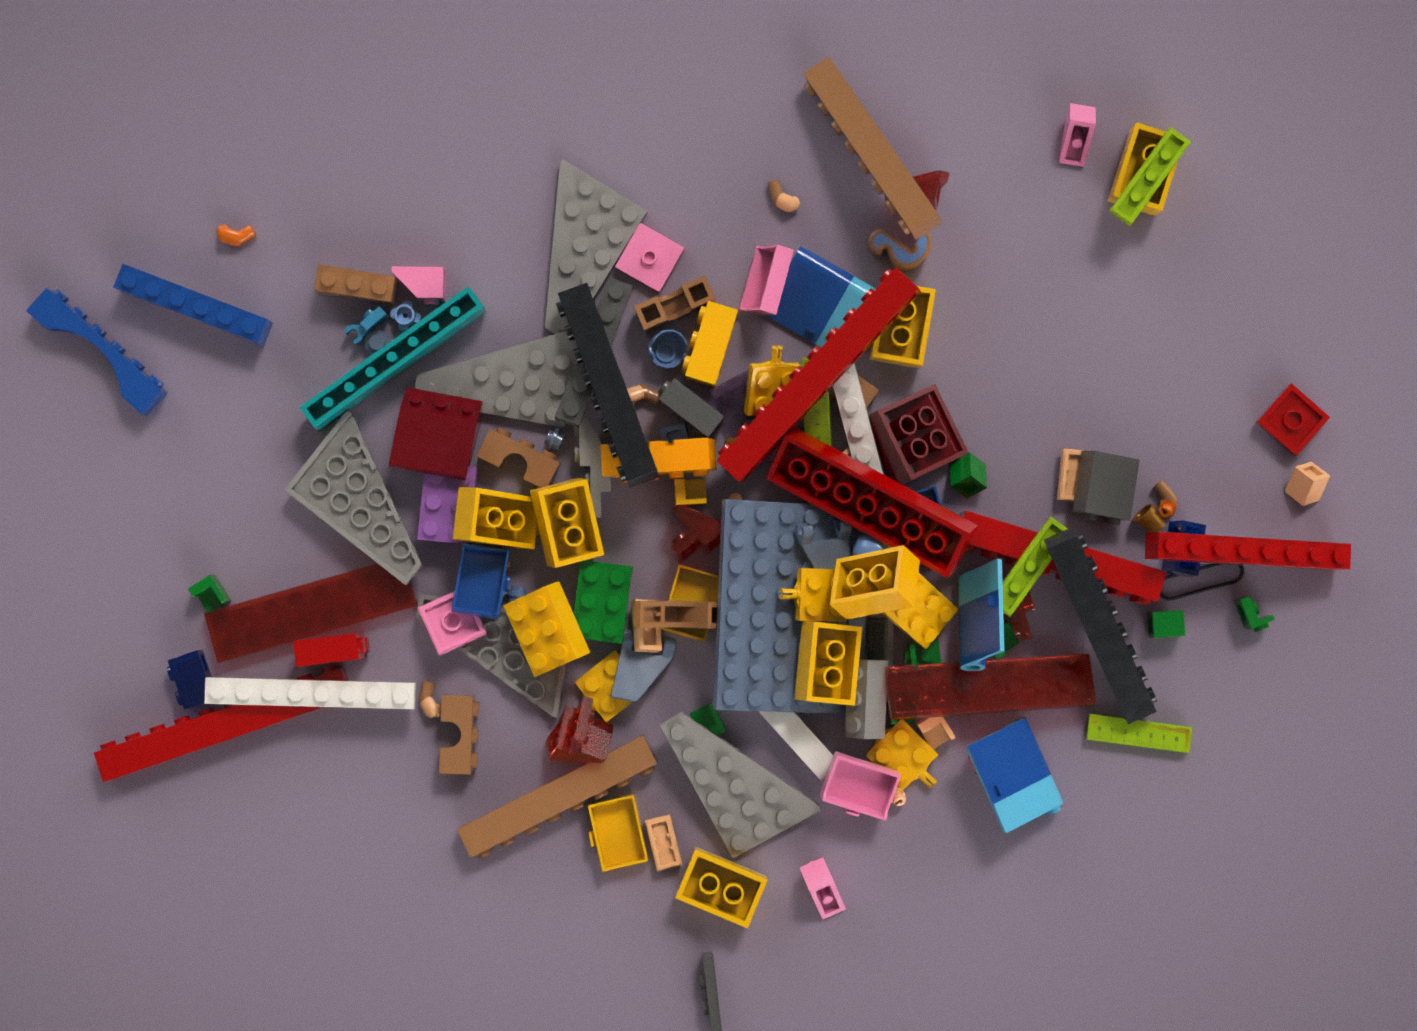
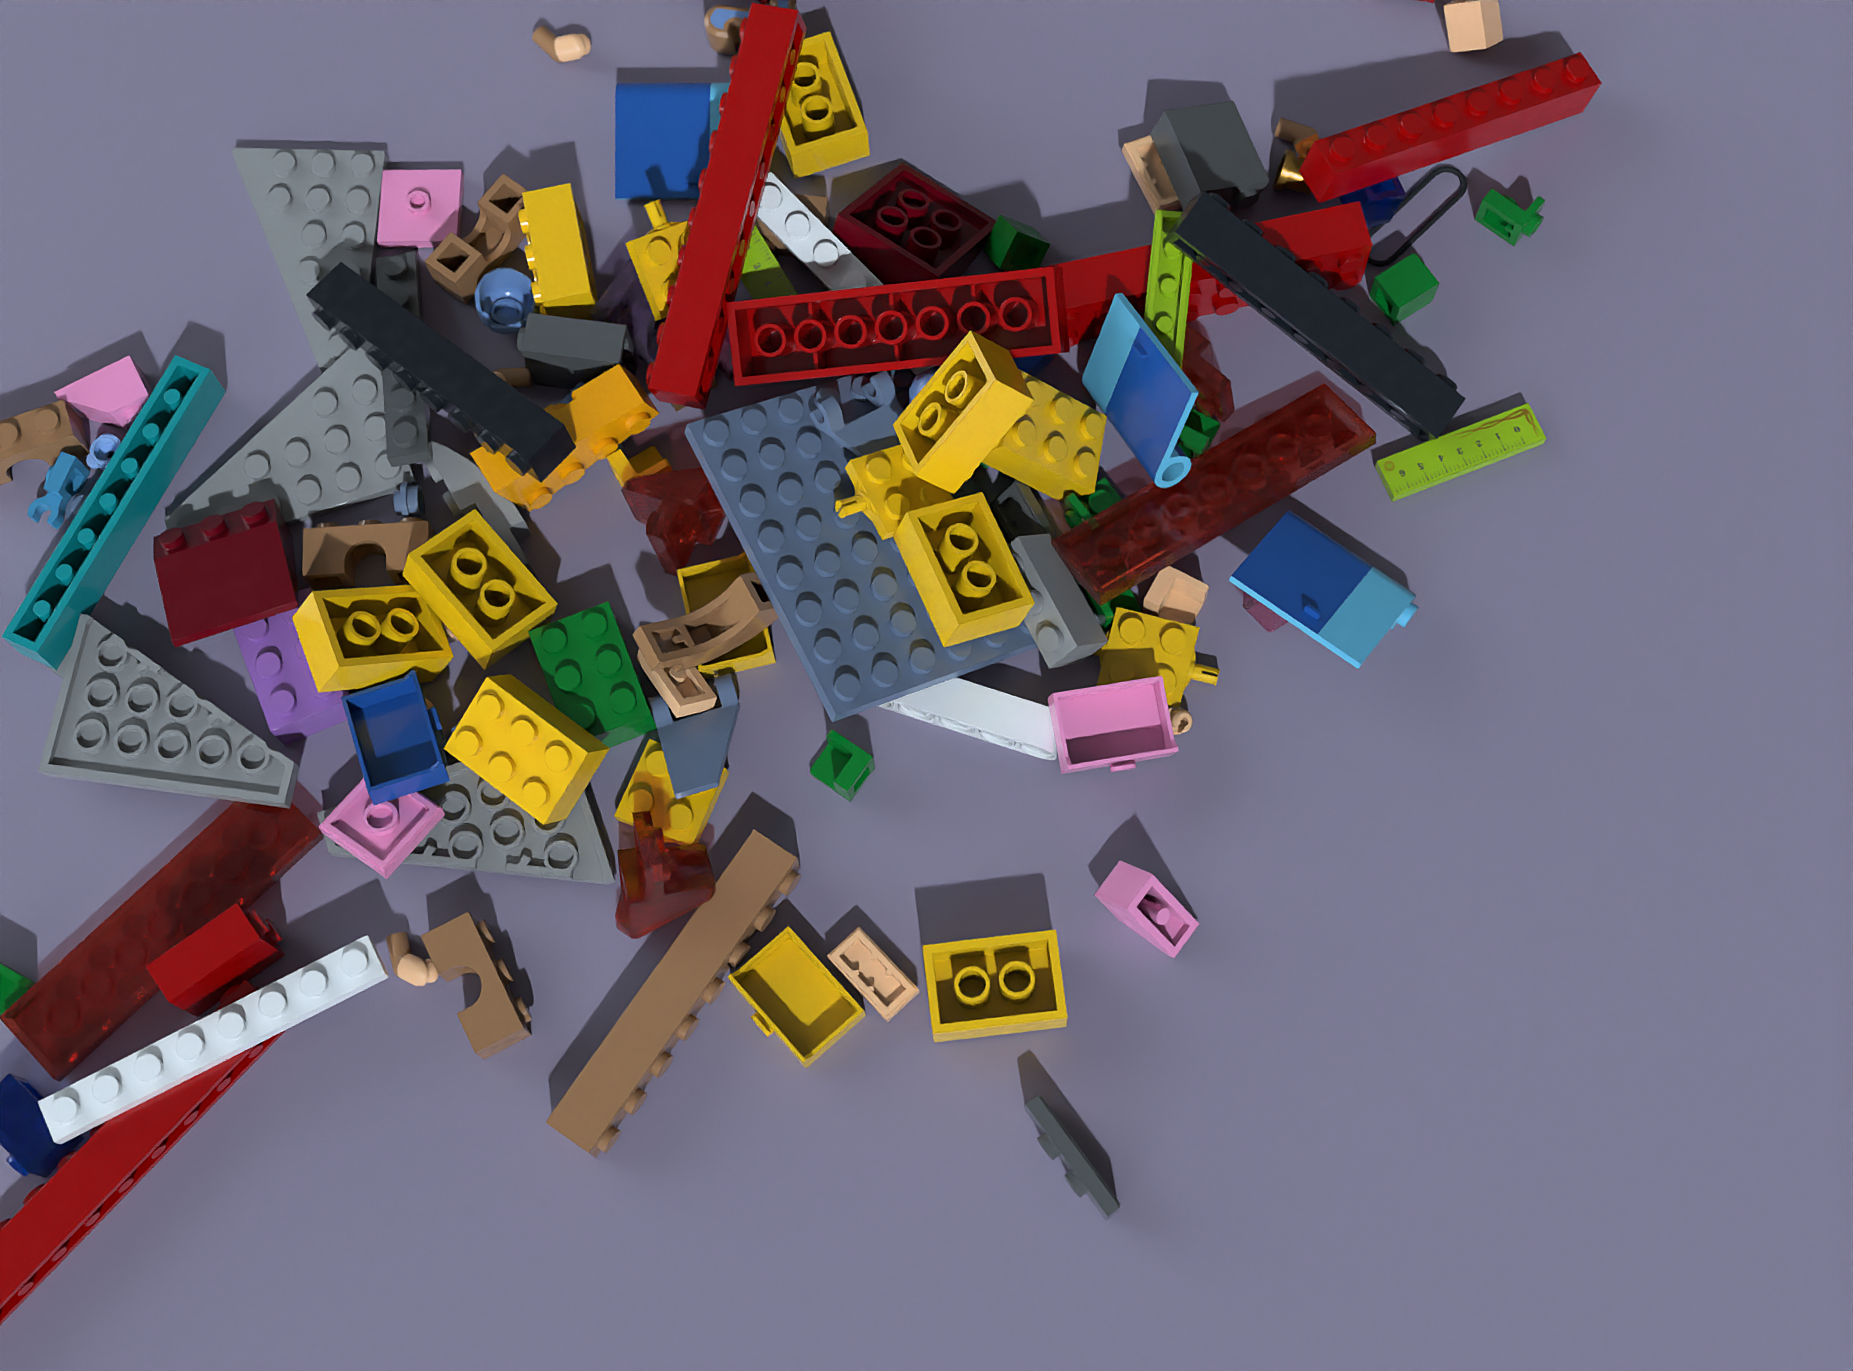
camera: 20 degrees left, 15 degrees down
(737, 792) = (940, 837): light grey wing -> none
(766, 280) = (594, 144): bright pink container -> none

